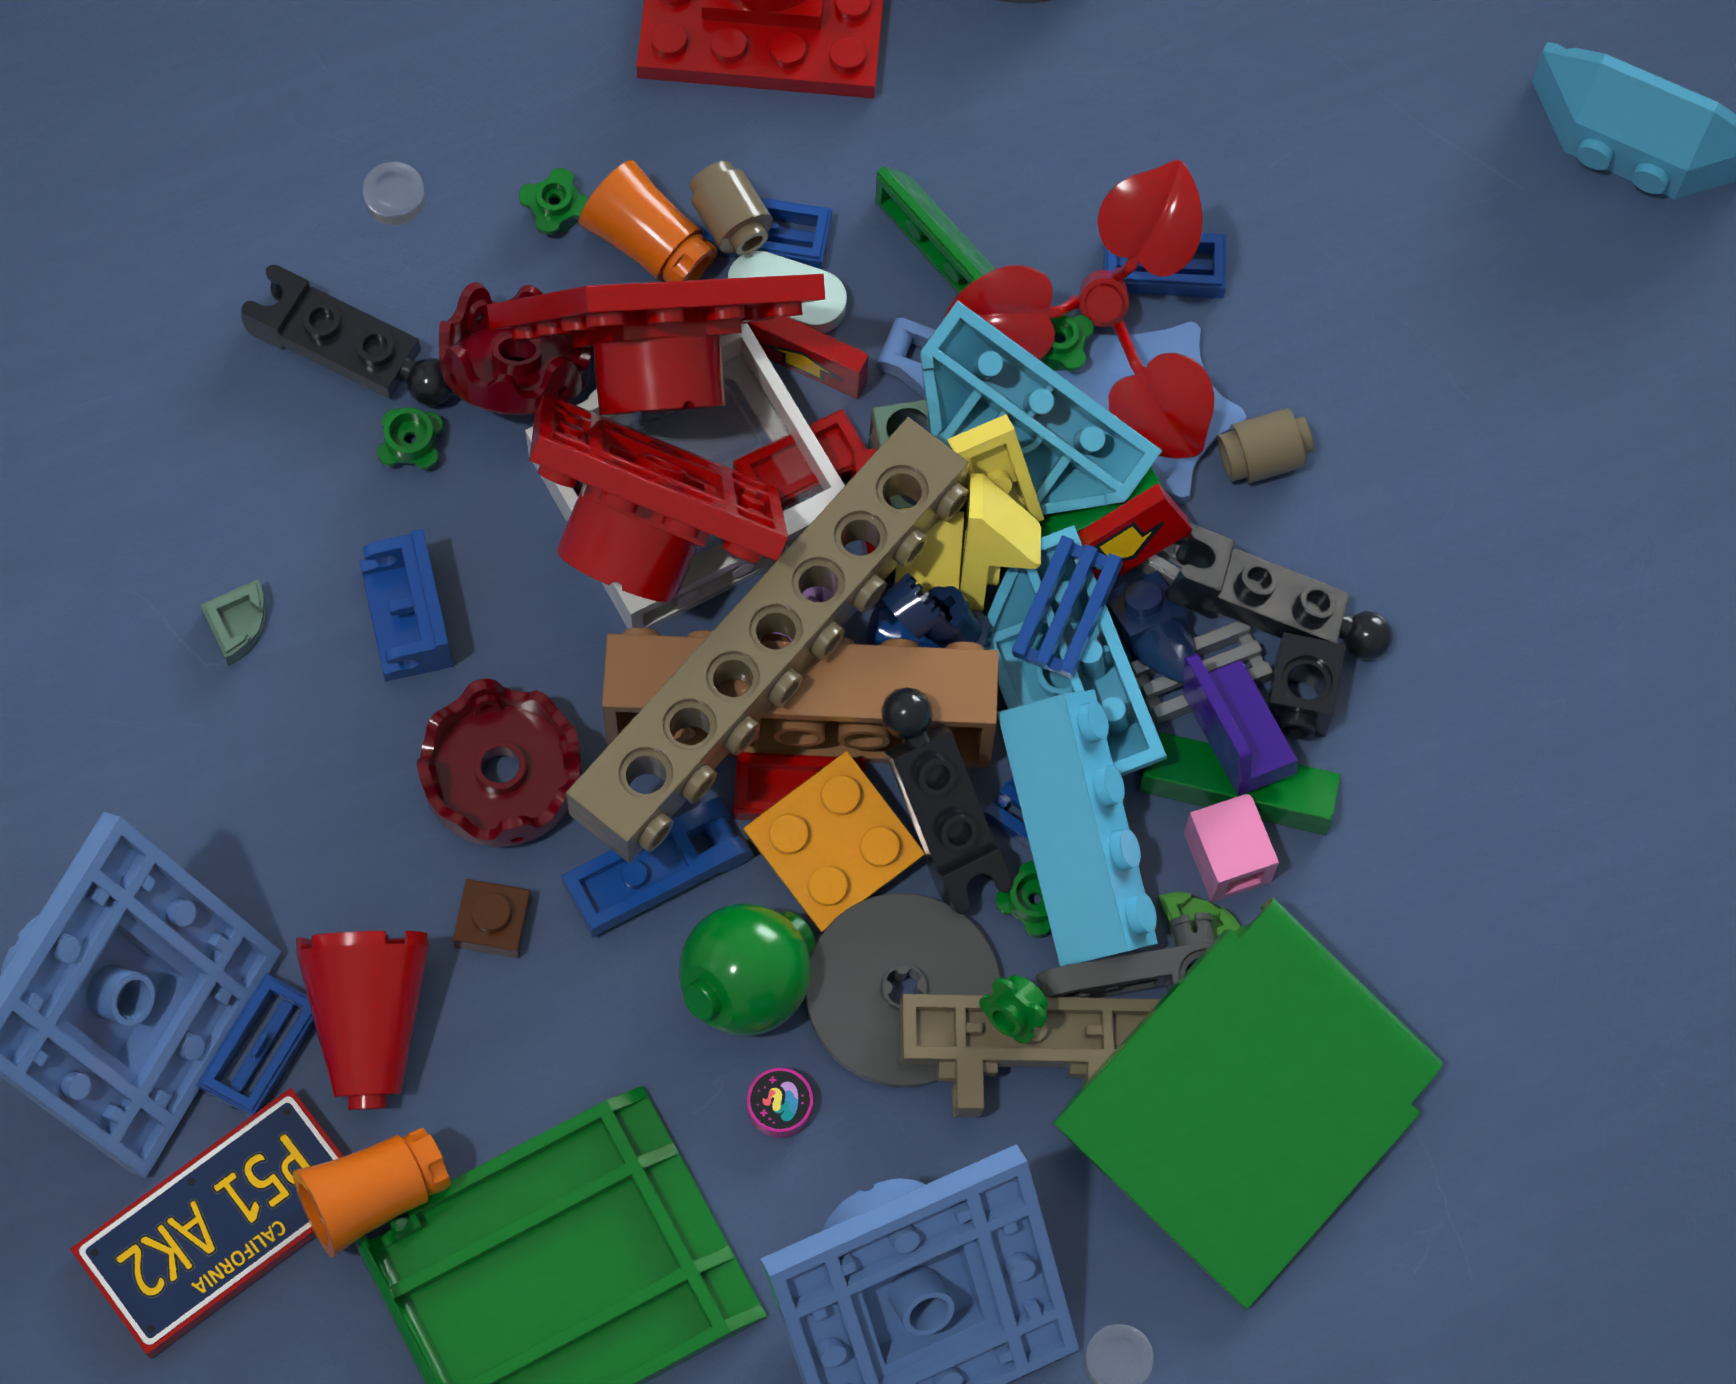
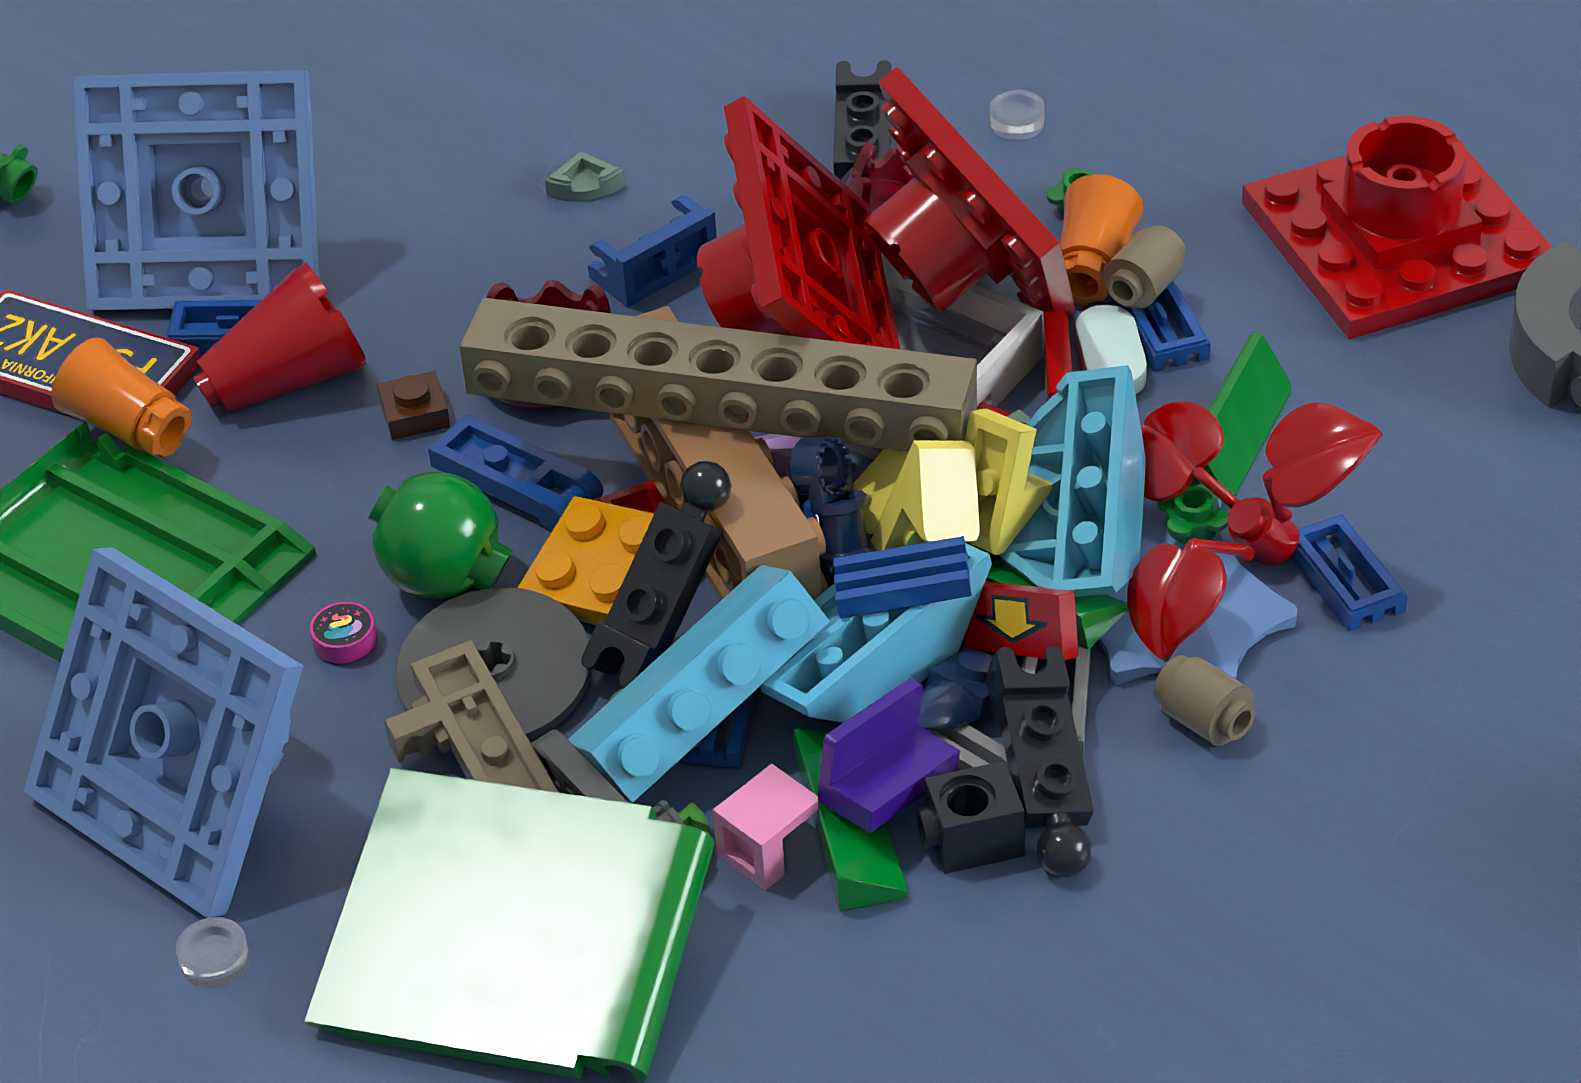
camera: 70 degrees right, 25 degrees down
(1015, 1007) = (492, 704): green plate -> none

